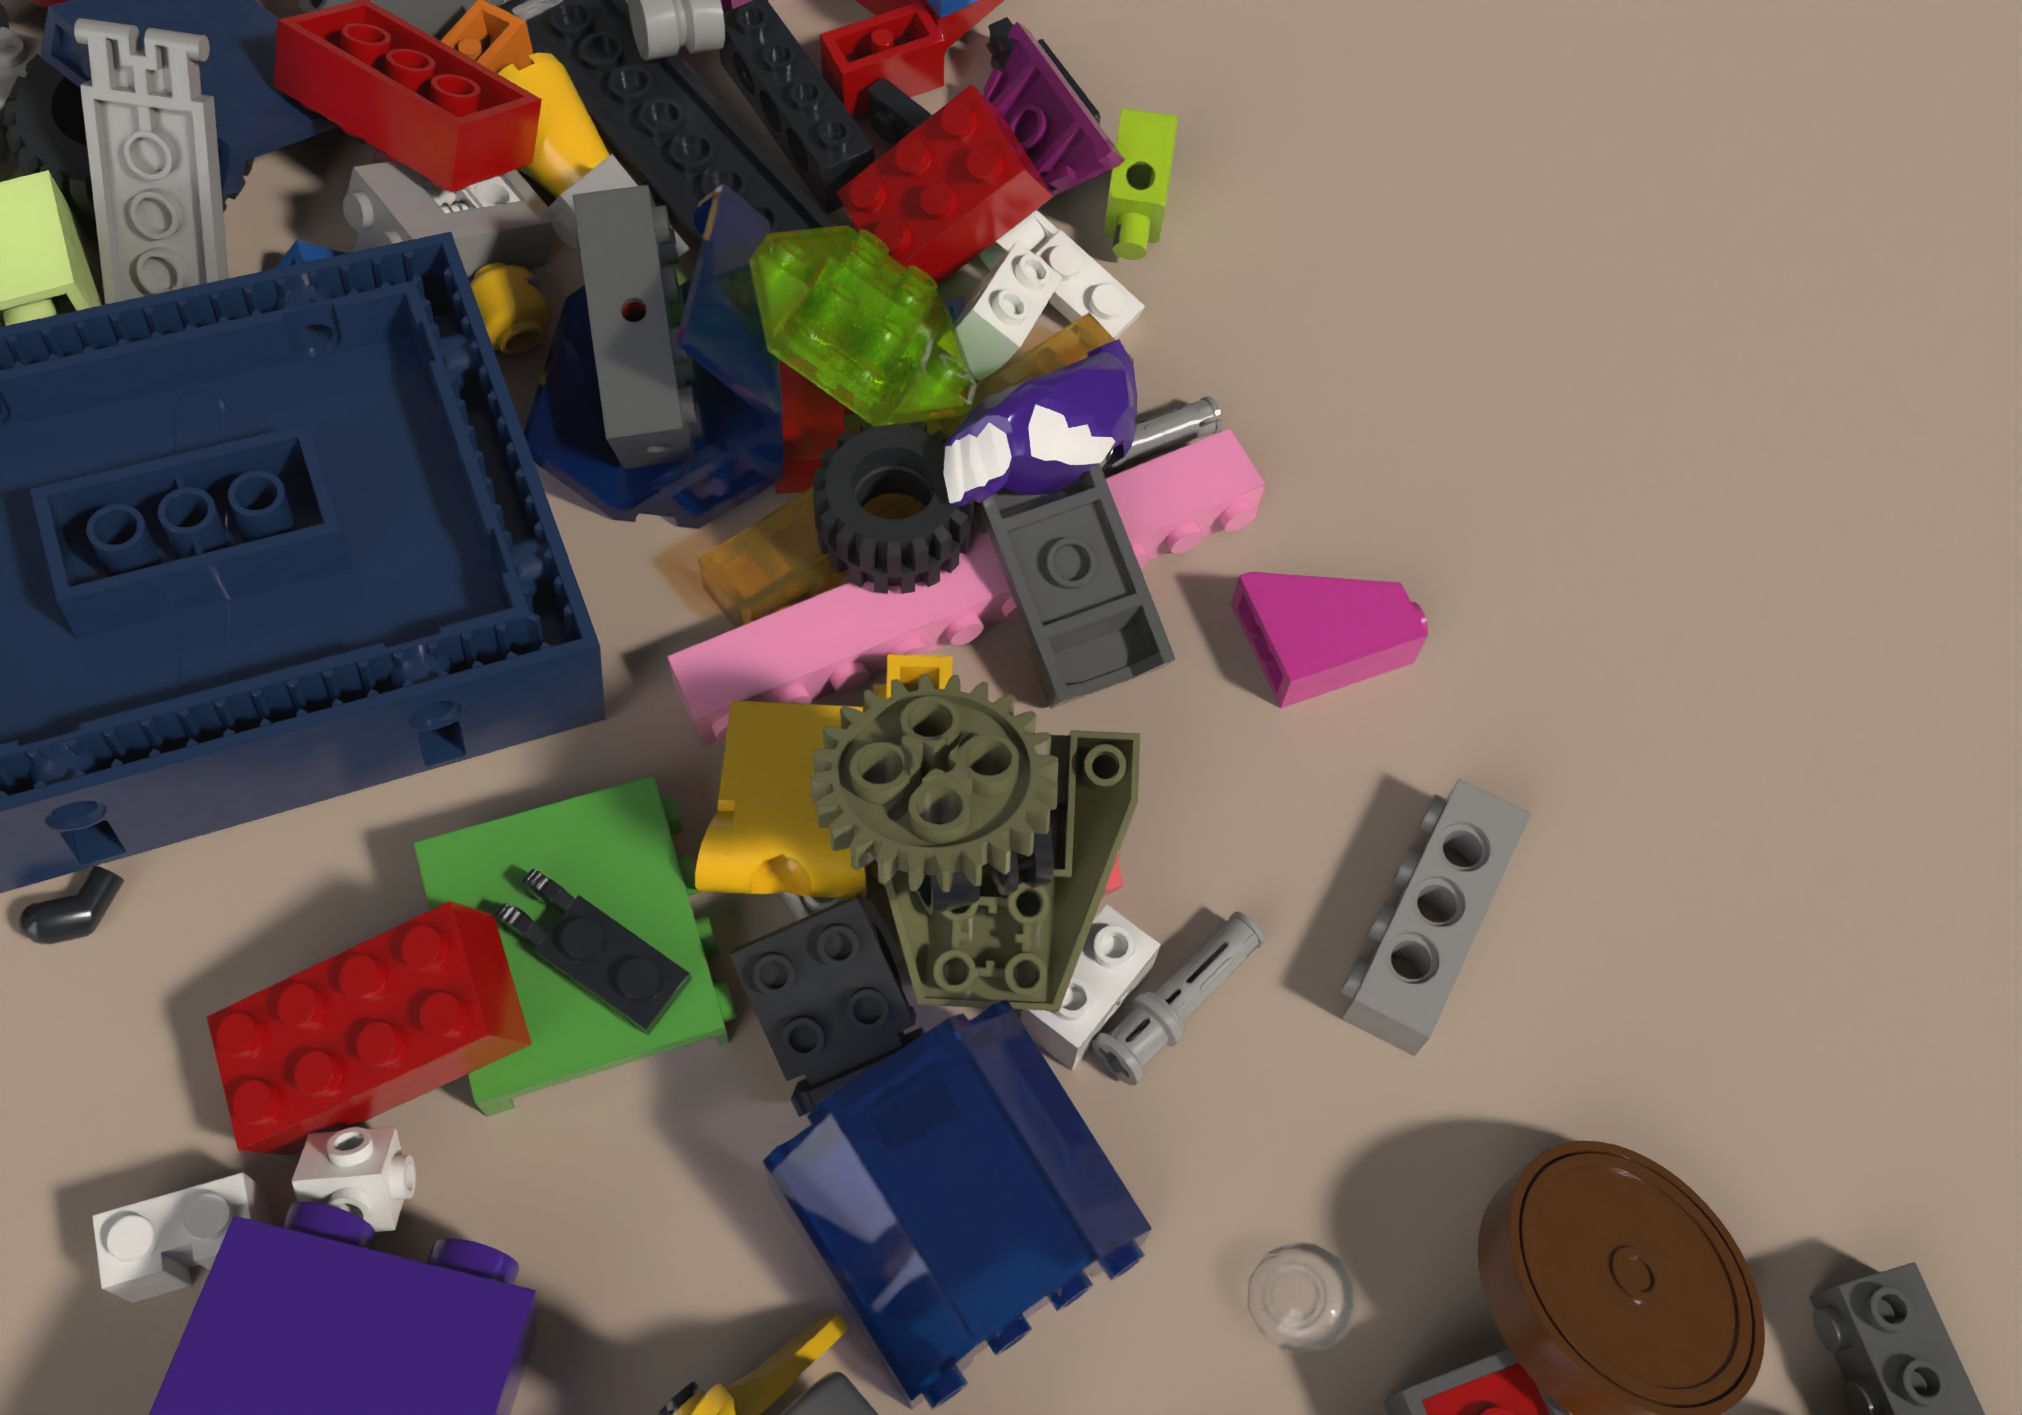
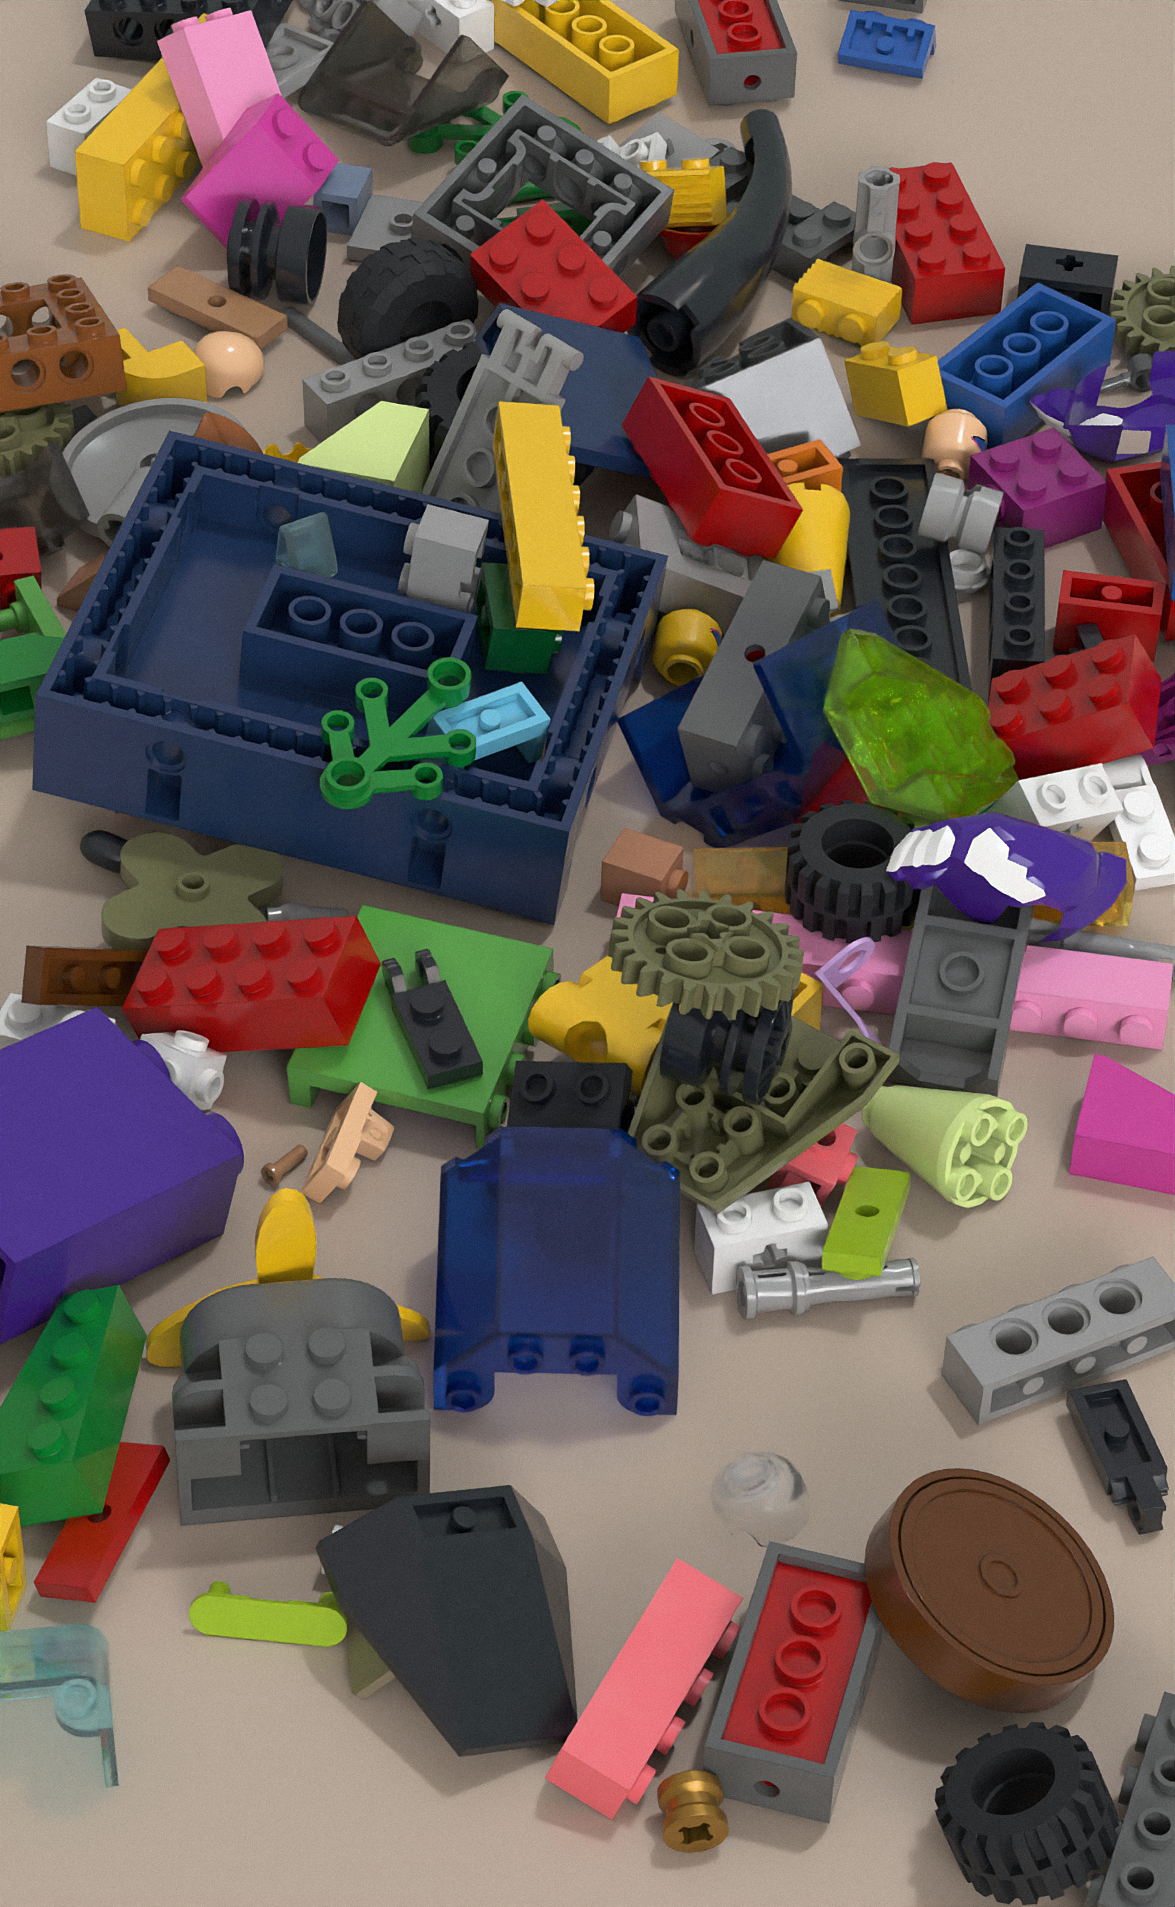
camera: 40 degrees right, 20 degrees down
(47, 439) = (307, 546): none -> clear light blue slope
(167, 1139) = (79, 975): none -> reddish brown piece
(201, 934) = (182, 888): none -> olive plant
(225, 377) = (443, 558): none -> light grey brick
(295, 264) = (541, 517): none -> yellow brick
(338, 873) = (296, 911): none -> light grey piece
(341, 656) = (353, 781): none -> green plant
(344, 397) = (500, 641): none -> dark green brick
(415, 567) = (497, 722): none -> medium azure panel
(538, 1225) = (273, 1172): none -> medium nougat piece
(587, 1127) = (350, 1131): none -> light nougat hinge
(658, 609) = (641, 867): none -> nougat brick
(710, 70) = (969, 571): none -> white plate
(984, 662) = (833, 976): none -> lavender piece
(1180, 908) = (866, 1222): none -> lime tile
(1189, 753) = (950, 1139): none -> yellowish green cone
(1569, 1007) = (1122, 1450): none -> black hinge

